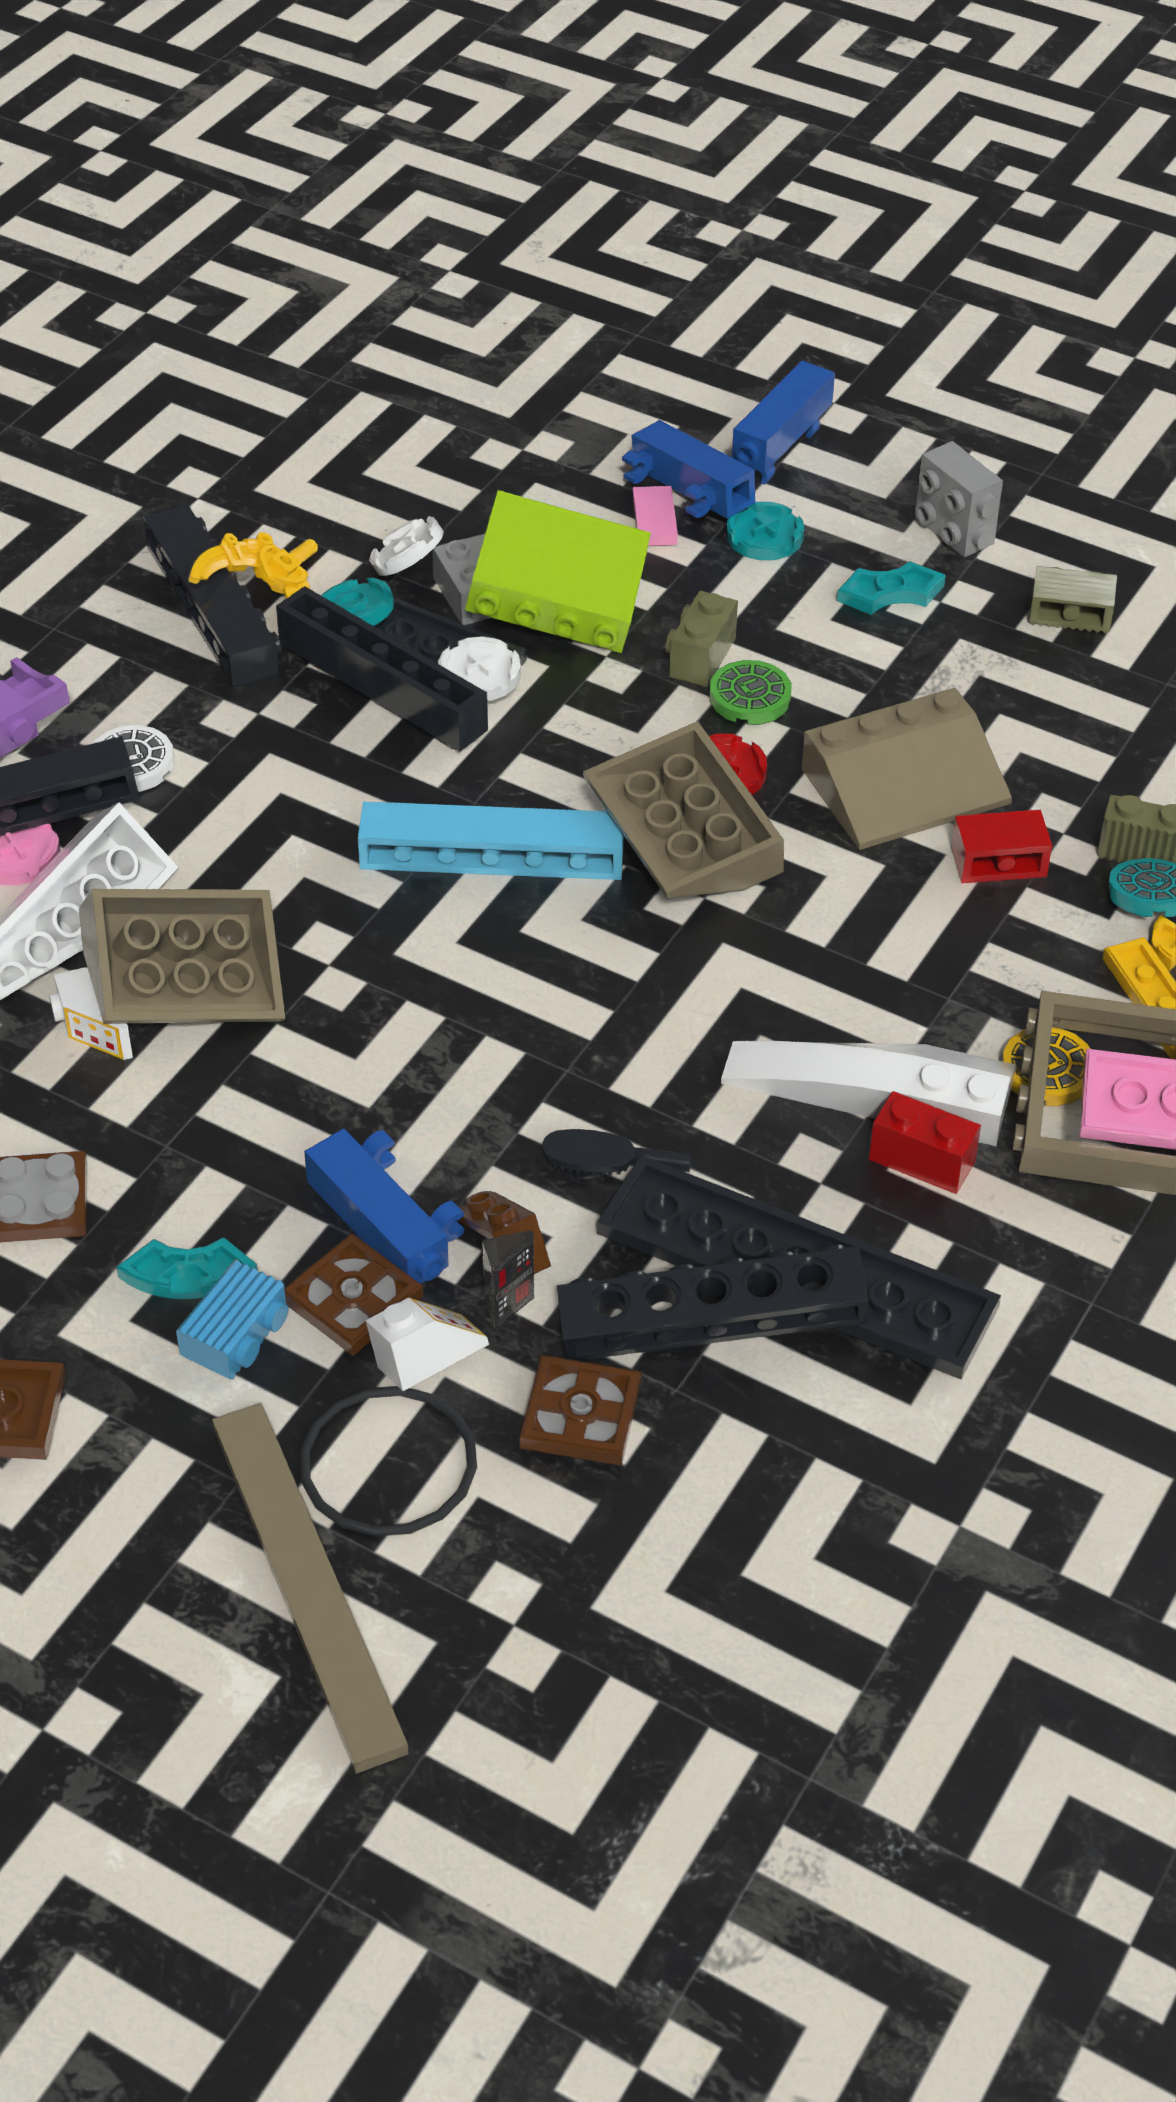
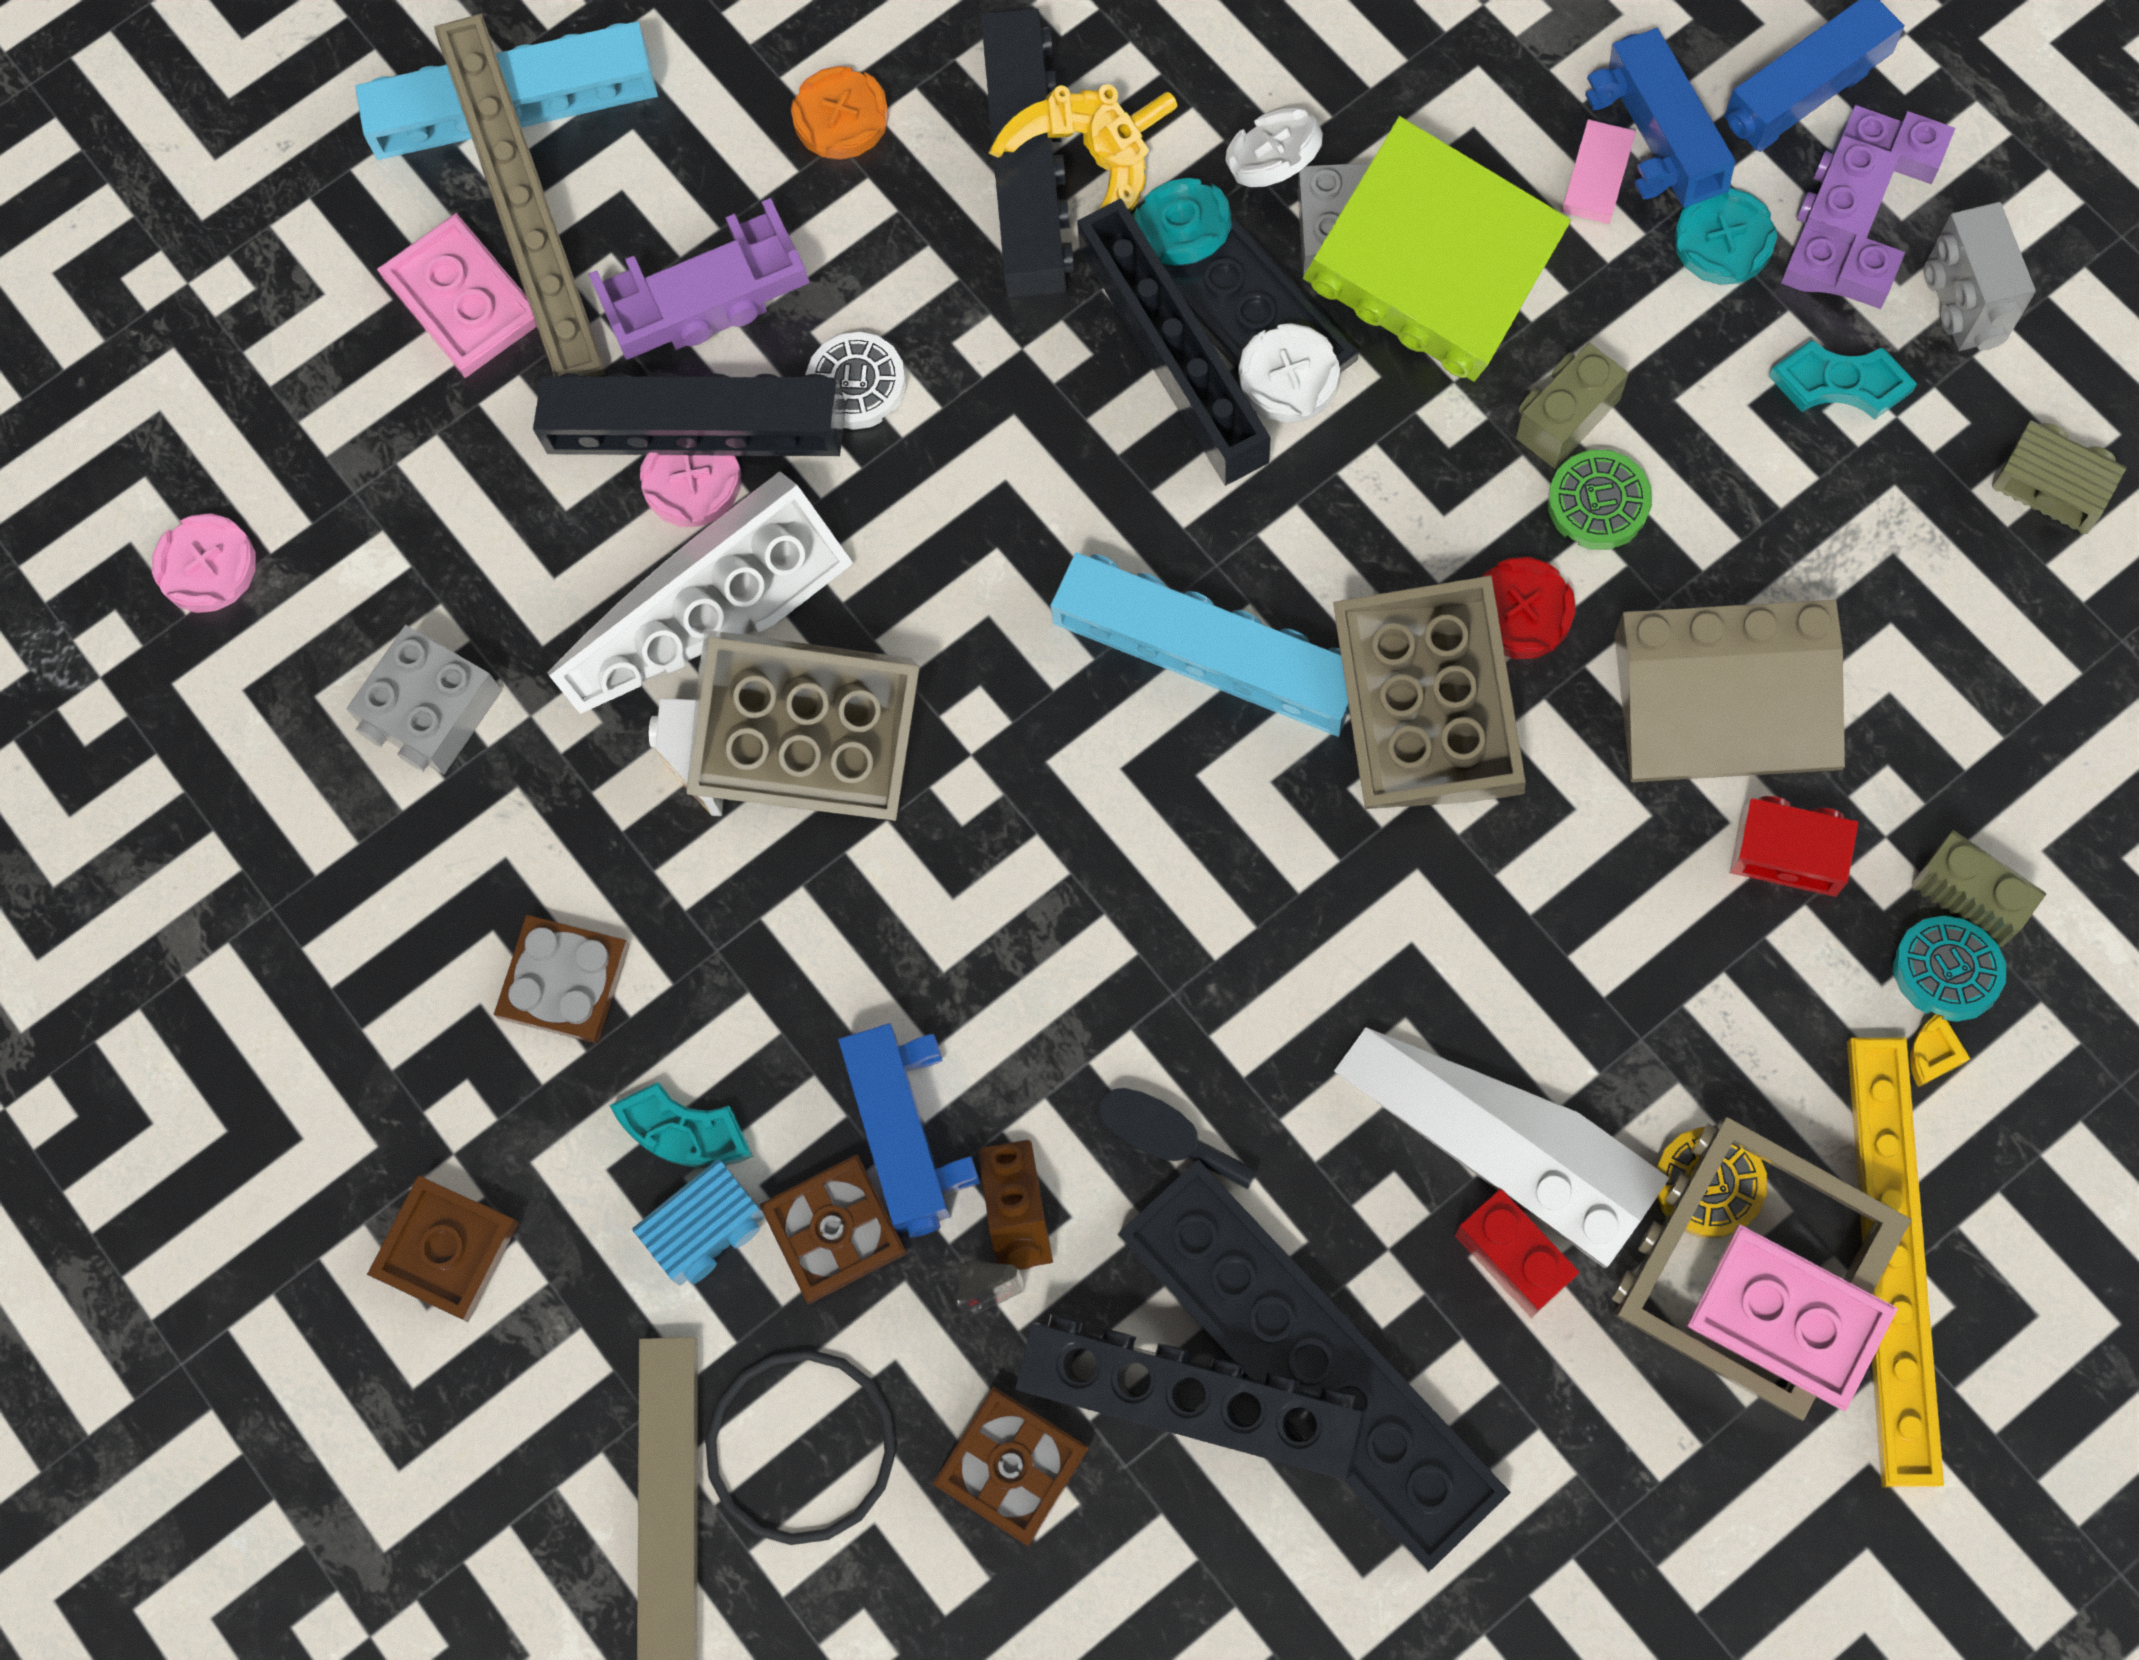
camera: 30 degrees right, 25 degrees up
(48, 609) = (840, 112): none -> orange tile
(420, 1340) = (882, 1323): white slope -> none
(842, 489) = (1834, 243): none -> medium lavender bracket

